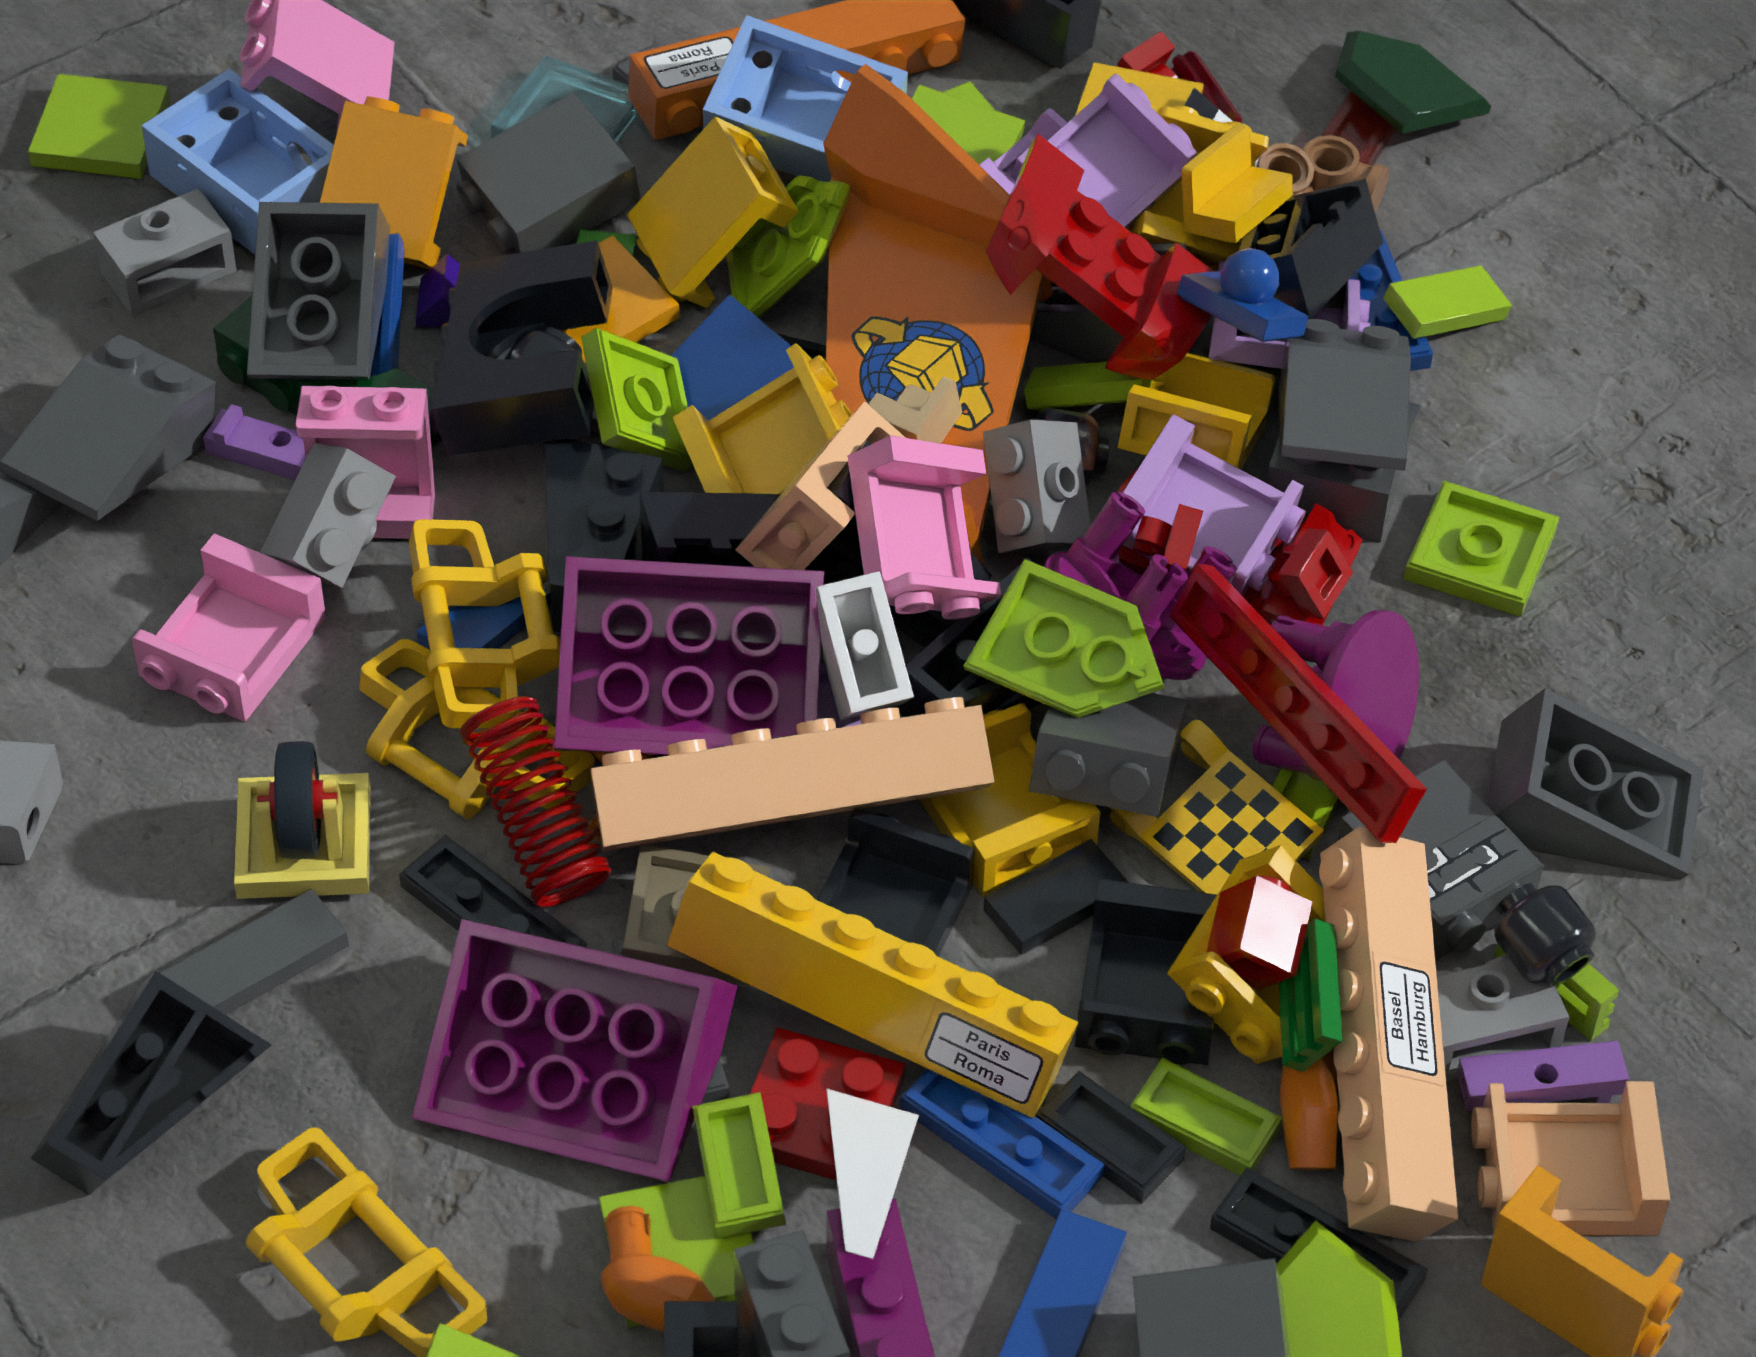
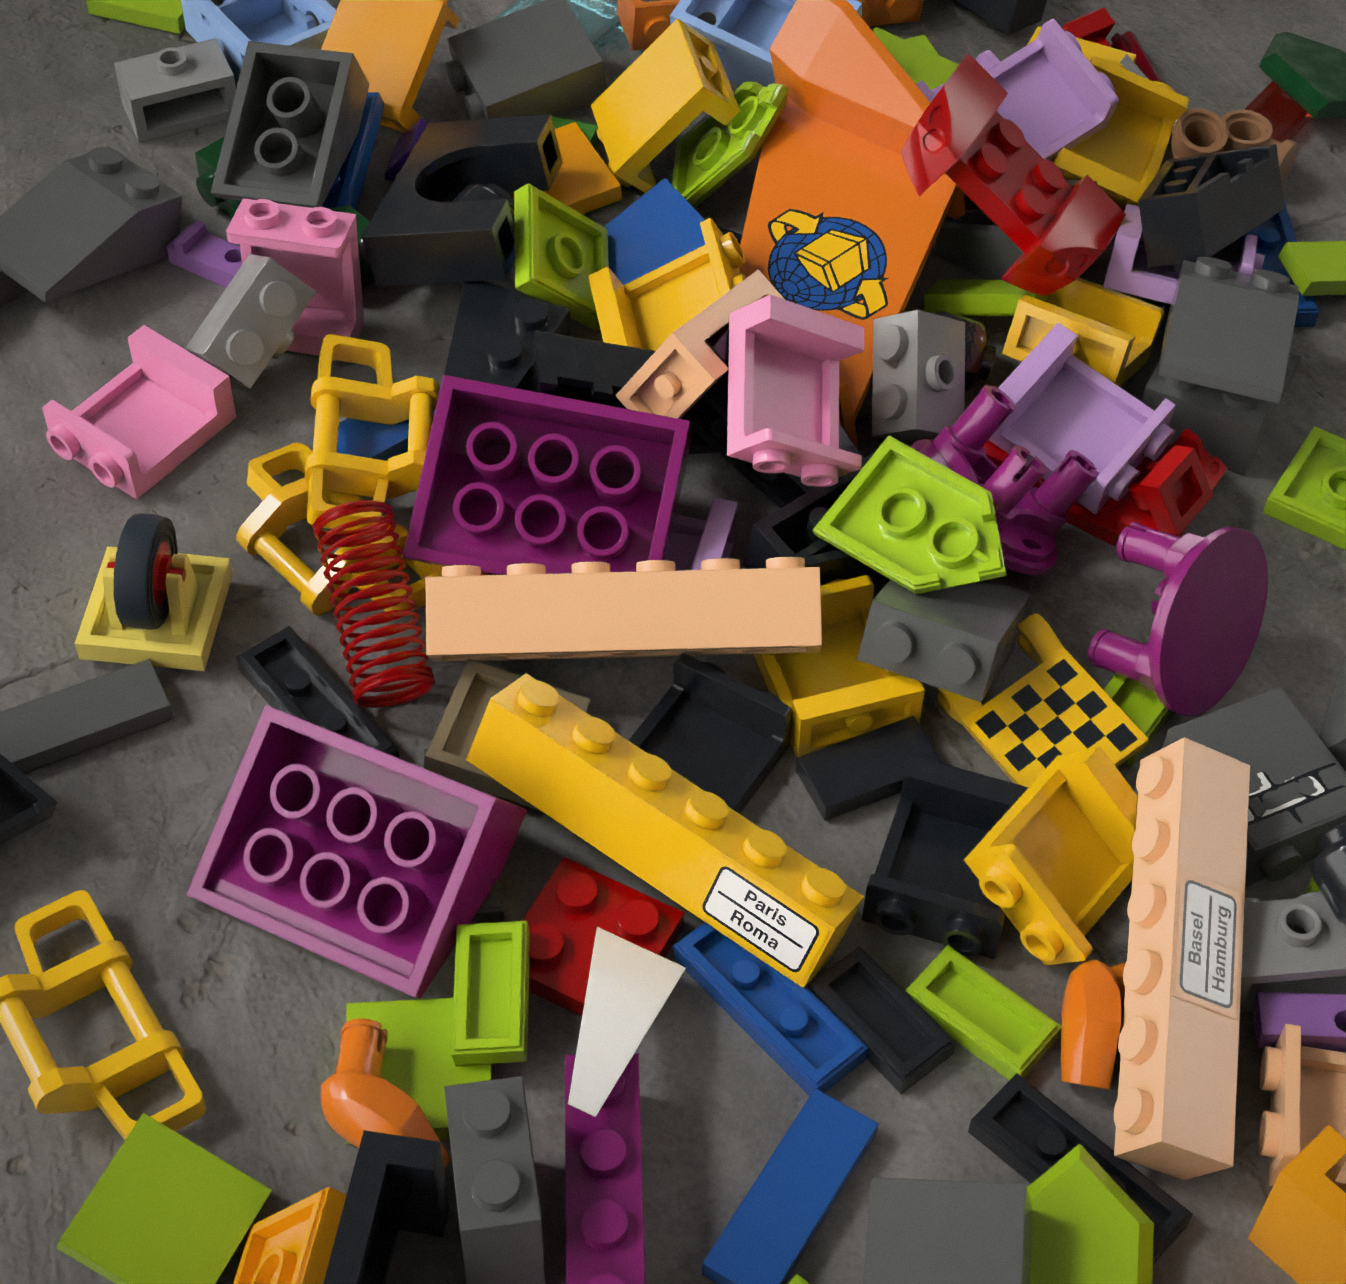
camera: 10 degrees right, 0 degrees up
(861, 646) = (713, 494): white slope -> none
(922, 413) = (830, 294): tan panel -> none
(1173, 541) = (1040, 439): red tile -> none
(1225, 193) = (1138, 139): yellow panel -> none
(1244, 296) = (1145, 225): blue tile -> none
(1260, 930) = (1066, 829): brick -> none
(1298, 704) = (1142, 613): red tile -> none
(1311, 1001) = (1107, 905): green tile -> none

